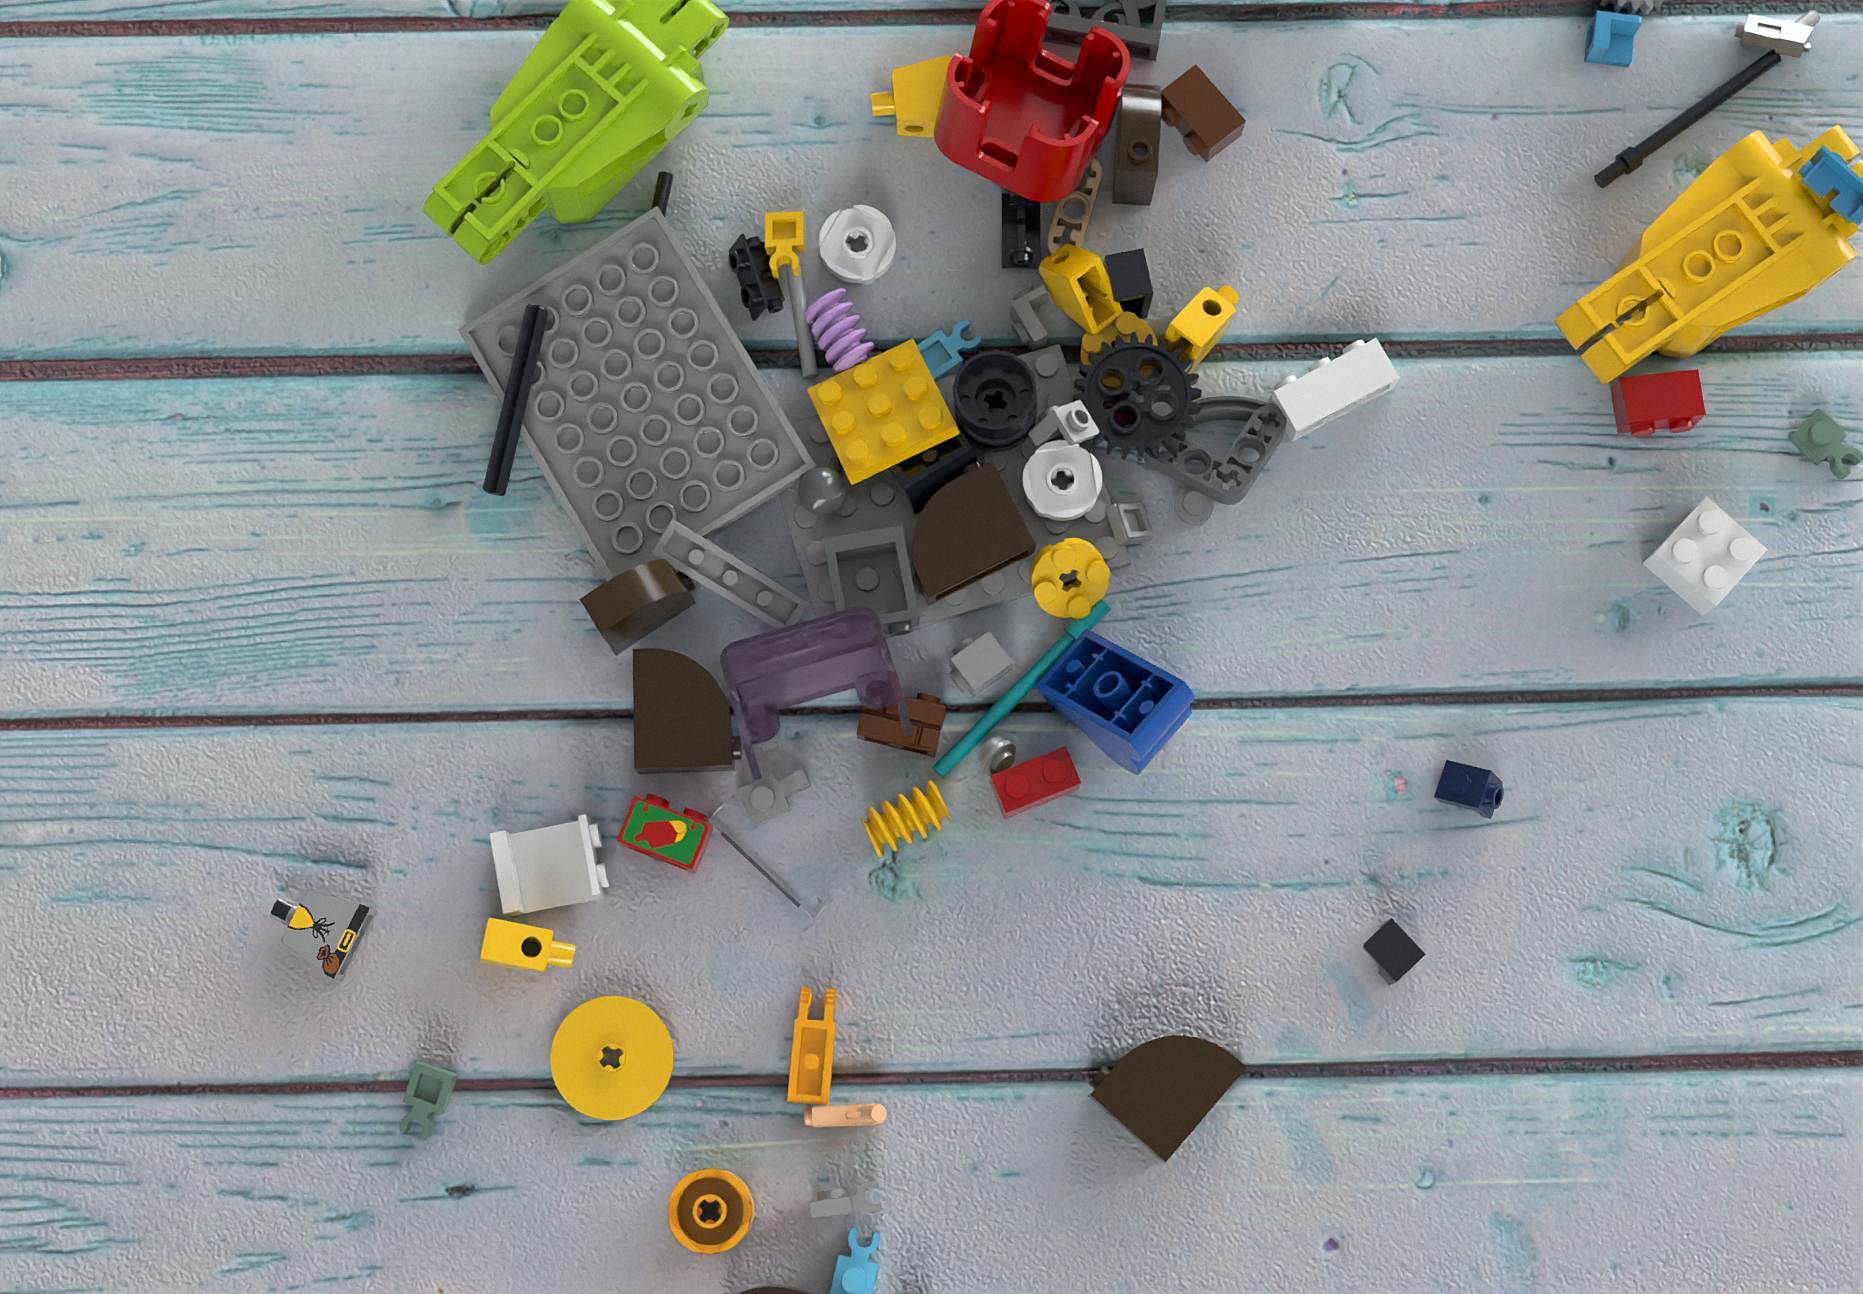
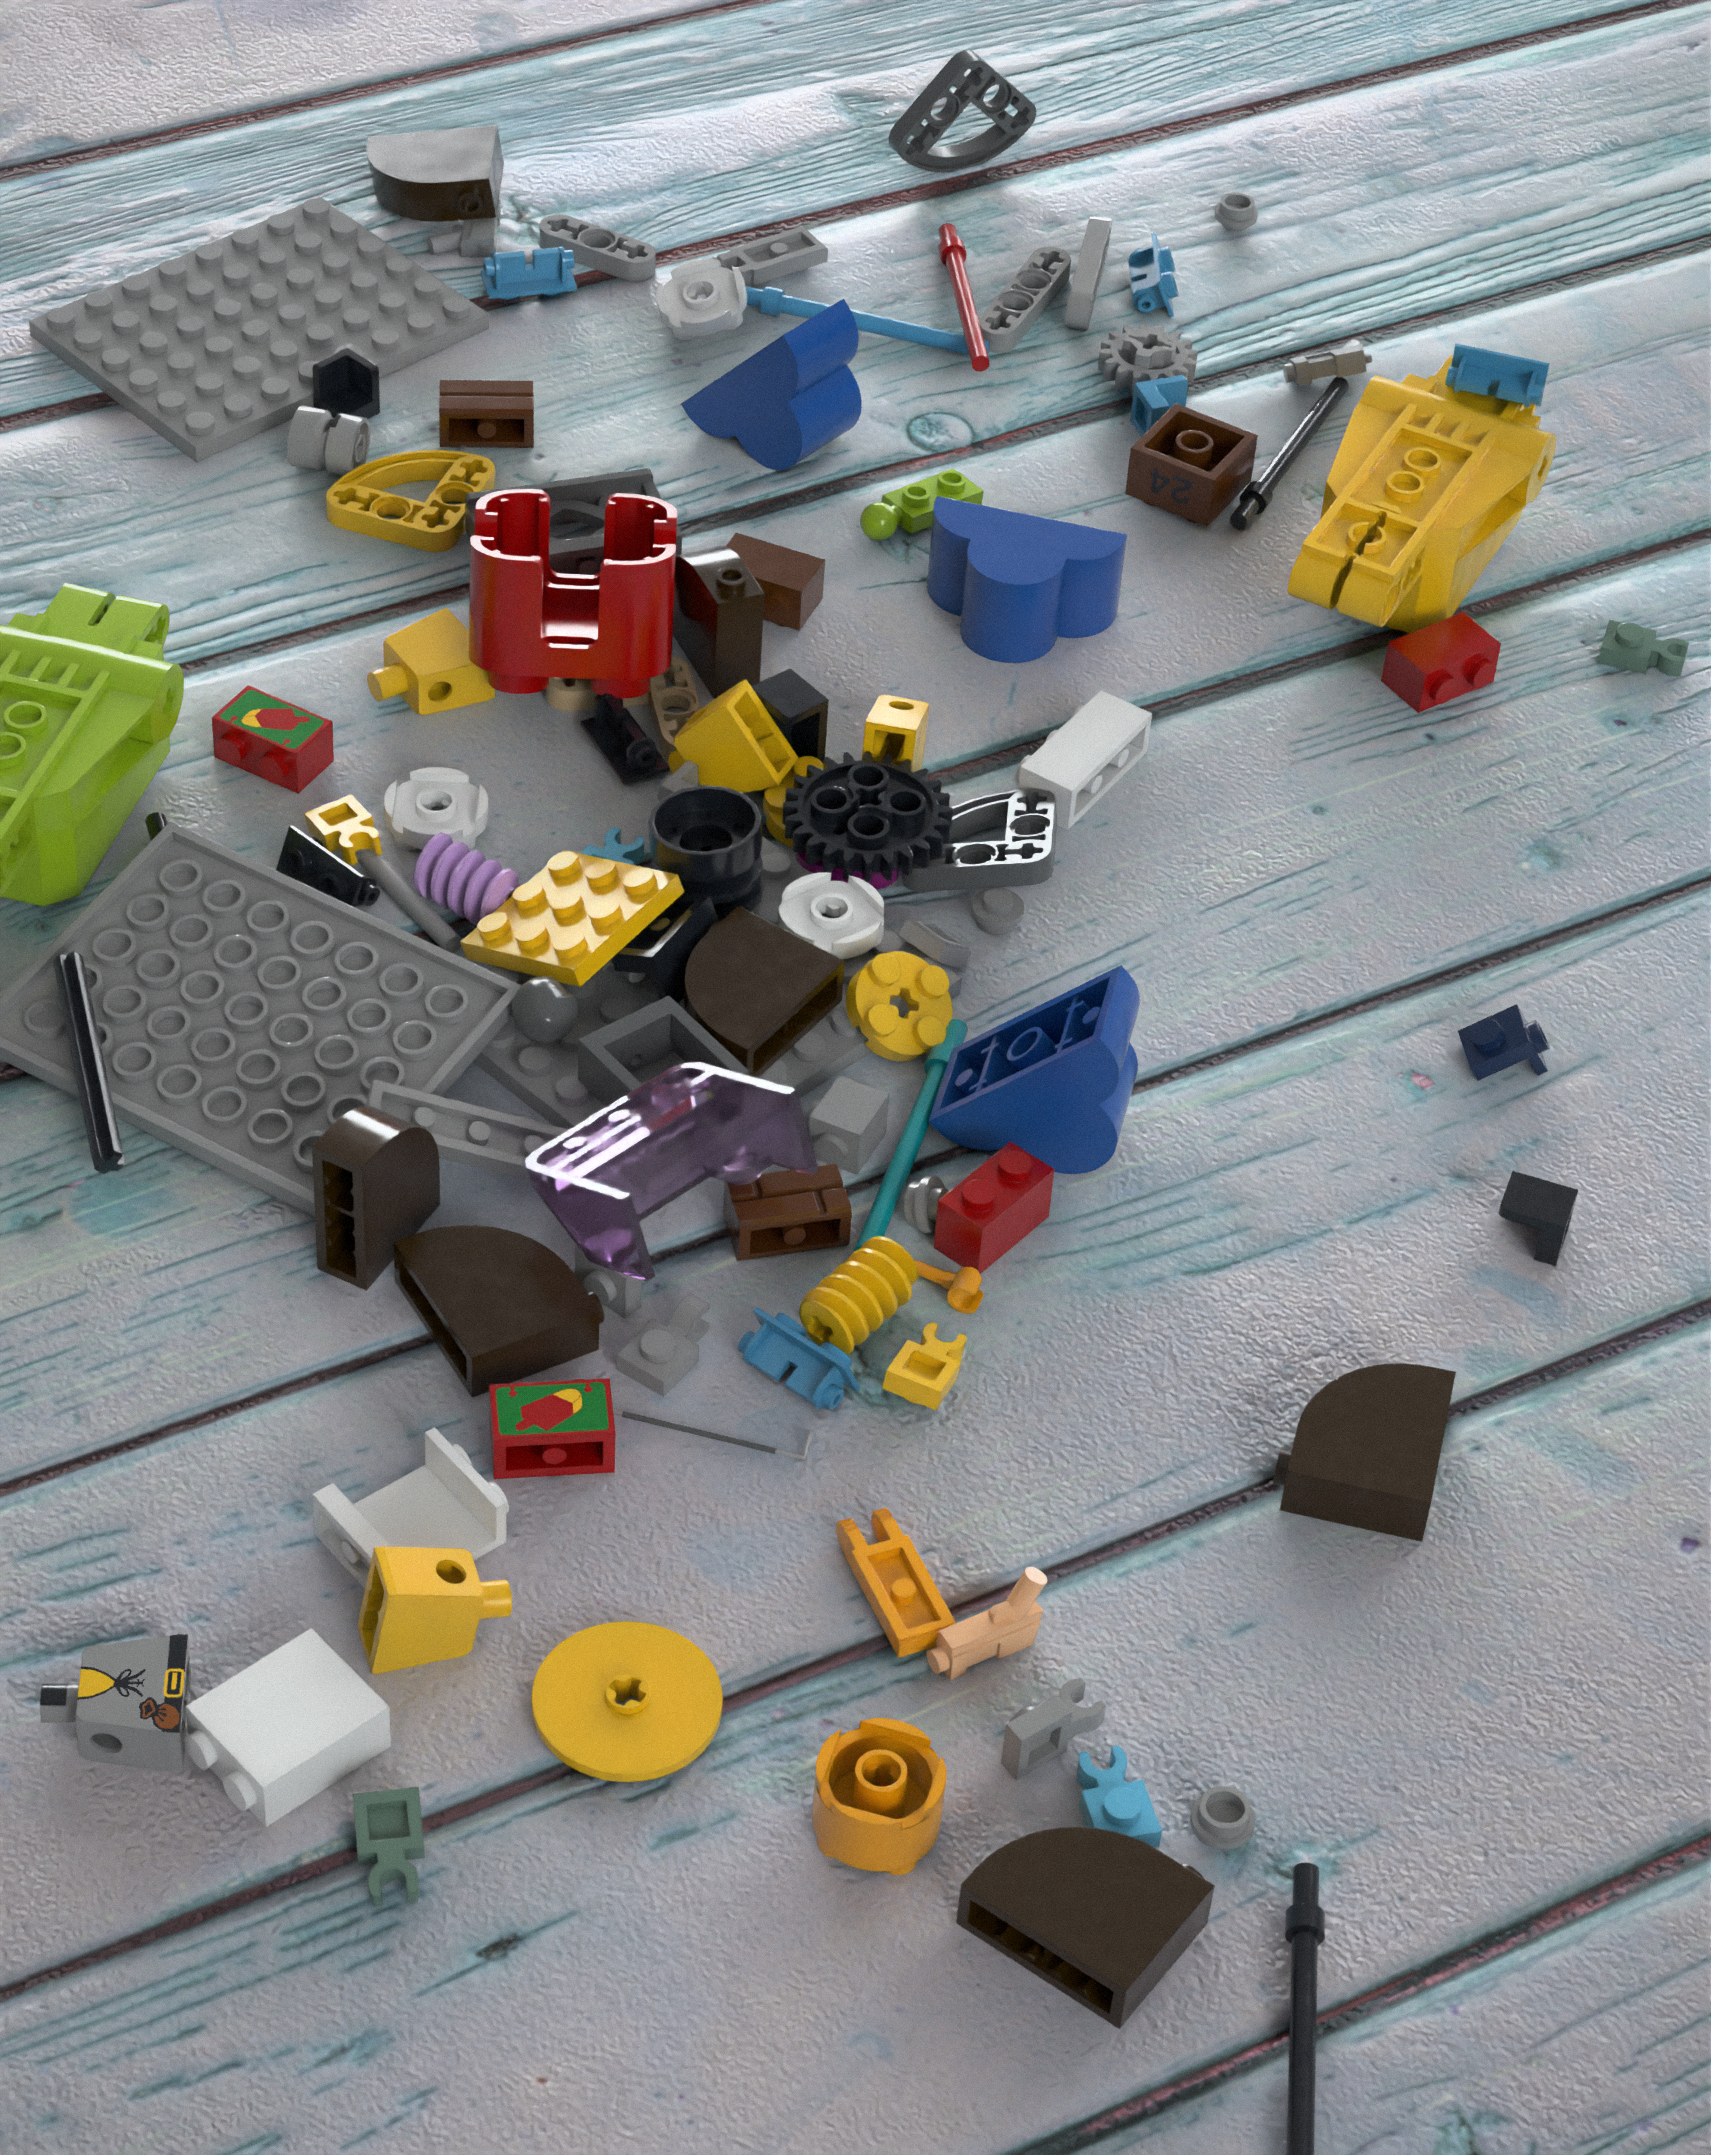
camera: 30 degrees left, 35 degrees down
(403, 991) = (287, 1727): none -> white brick
(776, 130) = (273, 739): none -> red brick
(857, 861) = (818, 1369): none -> dark azure hinge
(921, 893) = (925, 1370): none -> yellow plate
(986, 833) = (963, 1287): none -> light orange hand
(1068, 421) = (796, 848): light grey bracket -> none
(1368, 65) = (914, 504): none -> lime plate
(1383, 195) = (1021, 578): none -> blue brick
(1590, 116) = (1191, 464): none -> reddish brown brick
(1704, 556) = (1594, 764): white brick -> none

